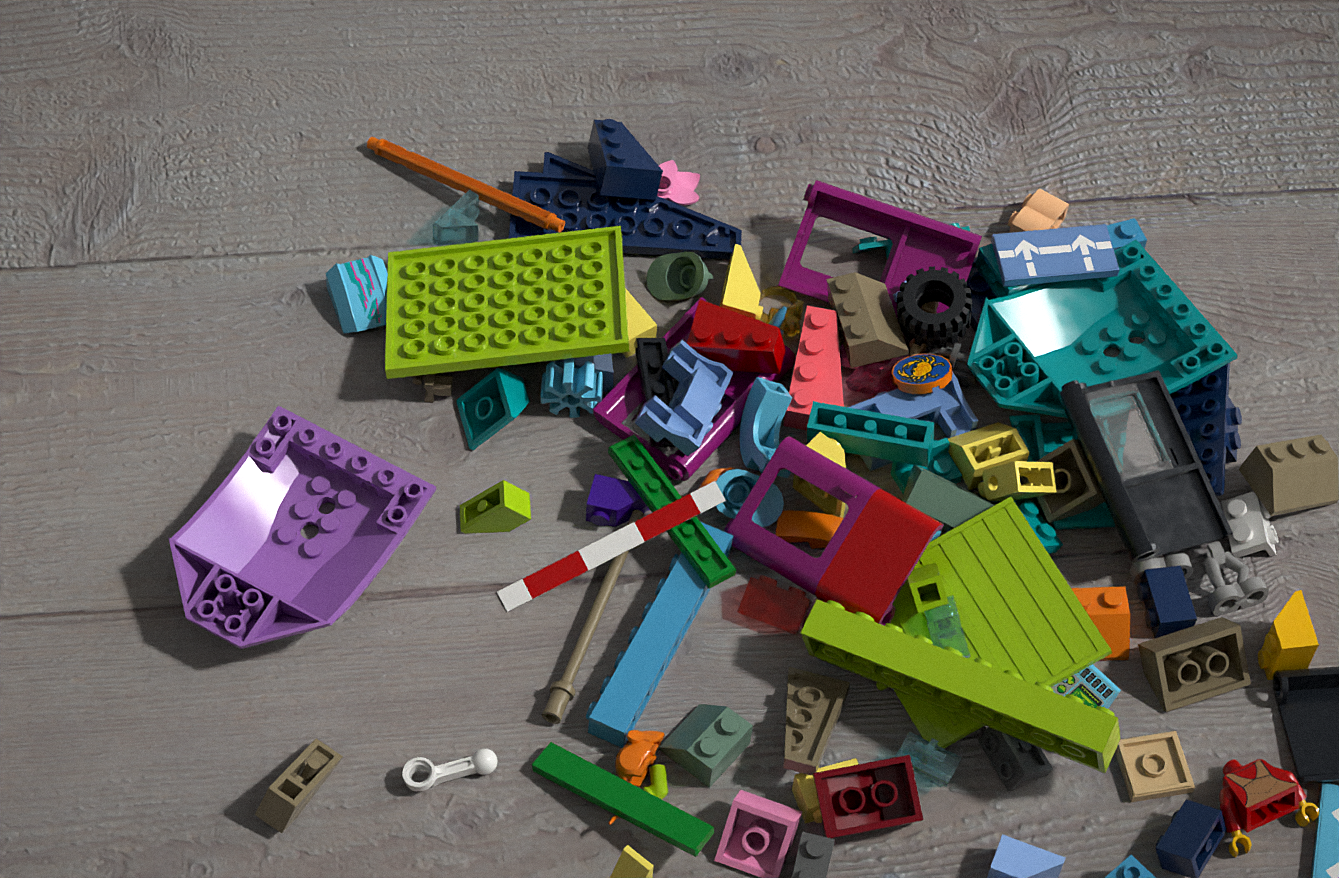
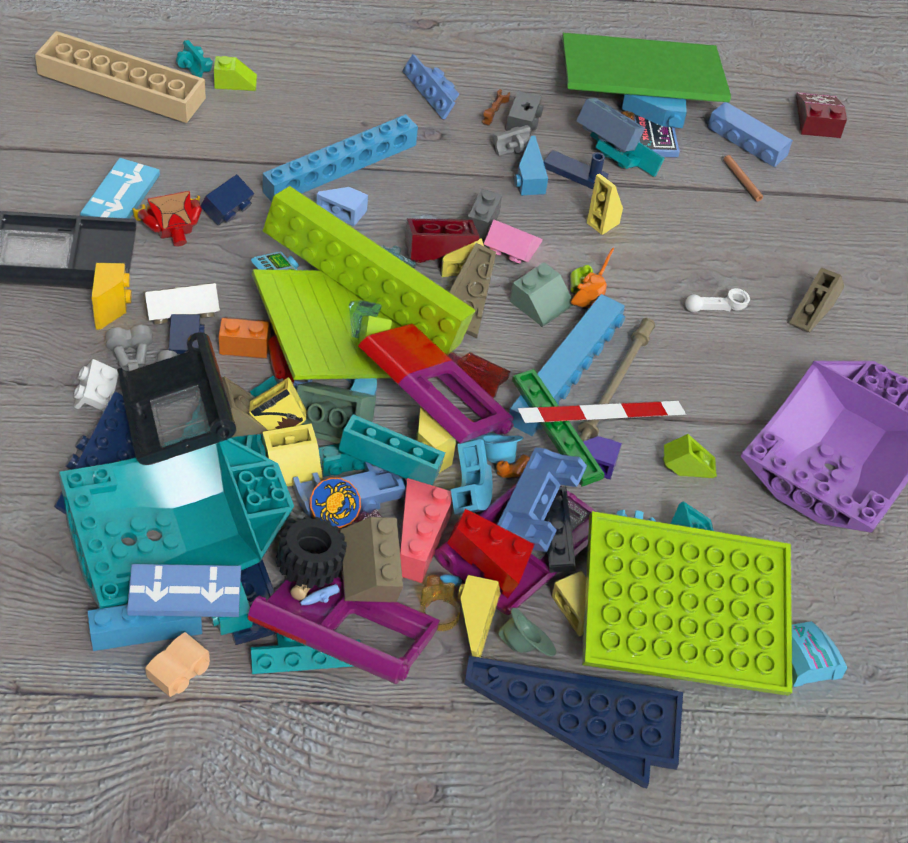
camera: 175 degrees left, 5 degrees down
(458, 222) = (730, 714): clear light blue slope -> none
(465, 183) = (728, 753): orange piece -> none
(621, 162) = (580, 747): dark blue wedge -> none
(623, 799) = (604, 264): green tile -> none
(677, 185) = (518, 746): bright pink plate -> none
(1154, 766) = (232, 252): tan tile -> none
(1293, 474) = (49, 408): dark tan slope -> none

